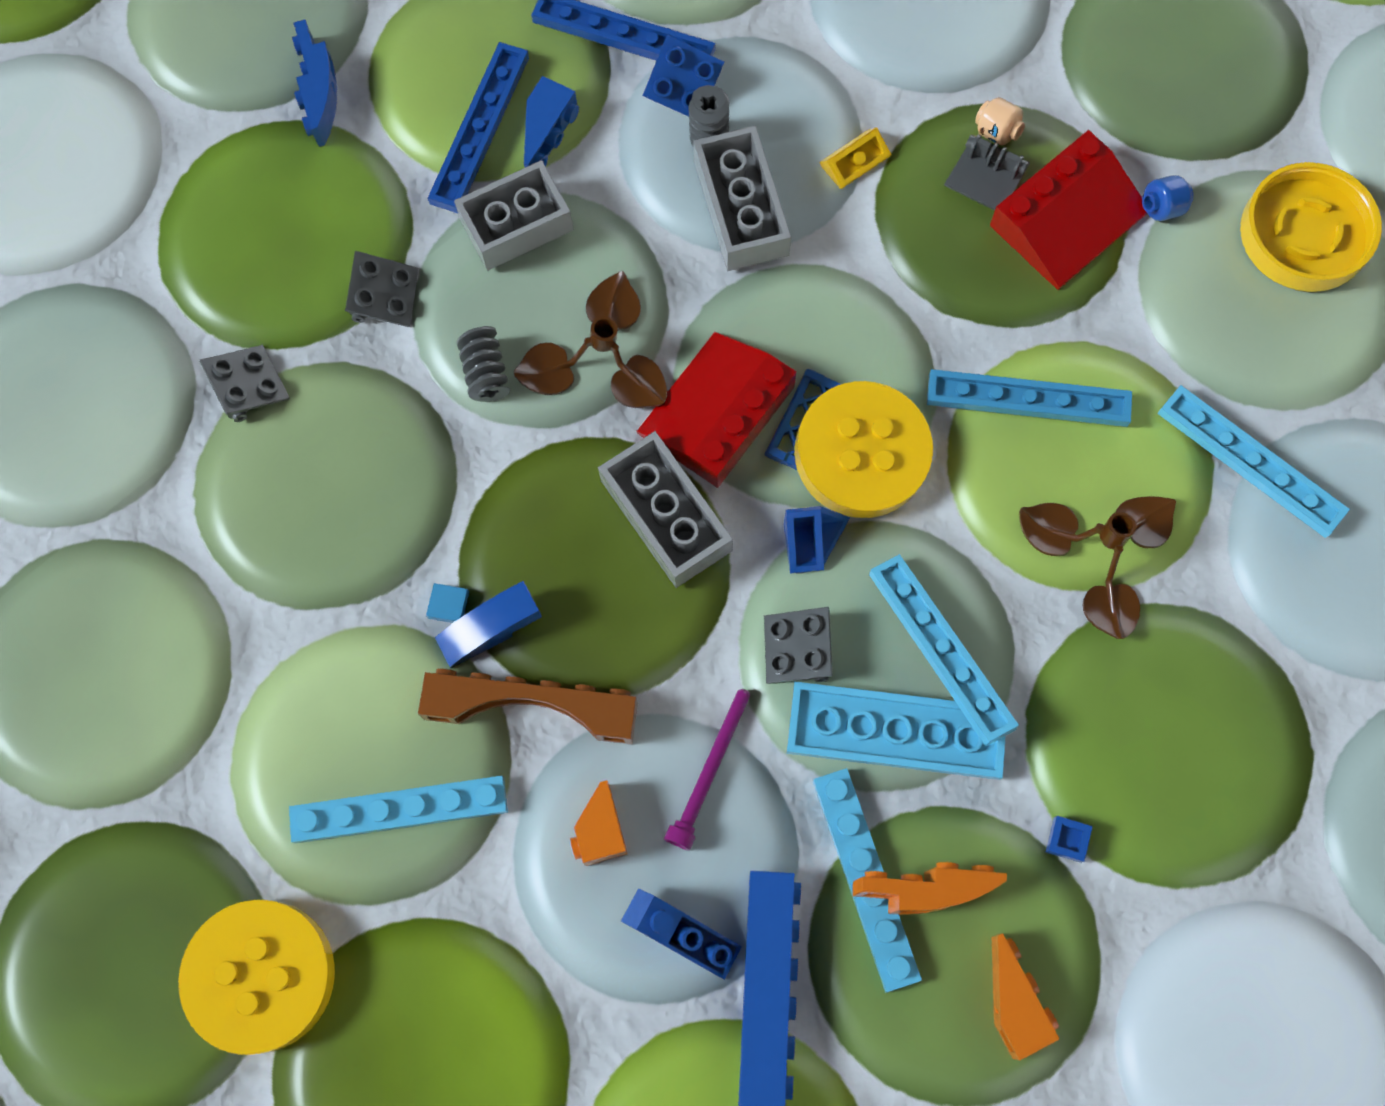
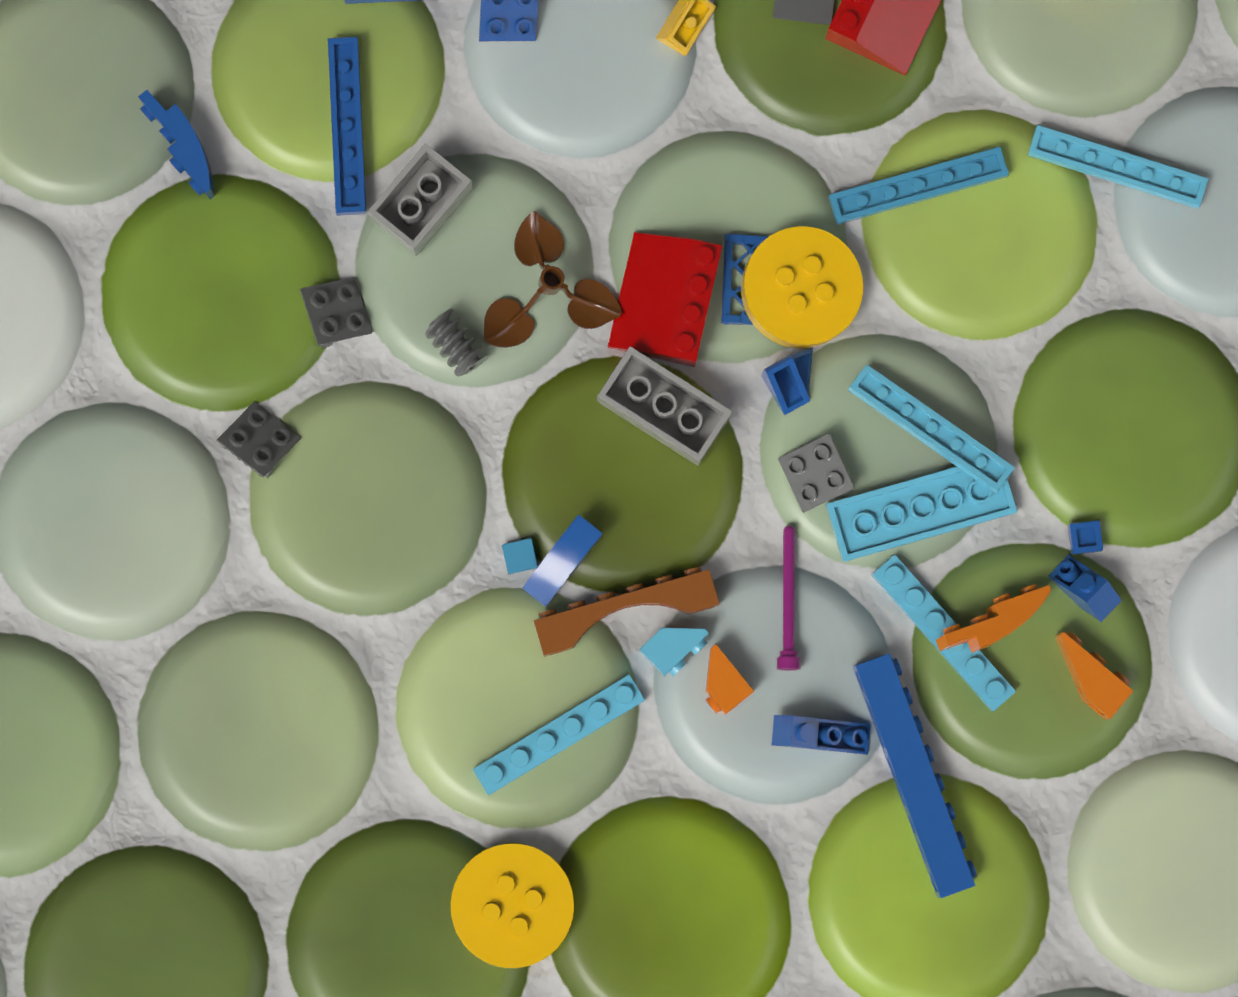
camera: 30 degrees left, 10 degrees up
(547, 116) = (402, 92): blue slope -> none
(560, 764) = (670, 646): none -> medium azure slope
(708, 112) = (550, 44): dark grey piece -> none
(741, 198) = (608, 104): light grey brick -> none
(1048, 896) = (1085, 588): none -> blue slope
(1143, 519) = (1046, 255): reddish brown plant -> none

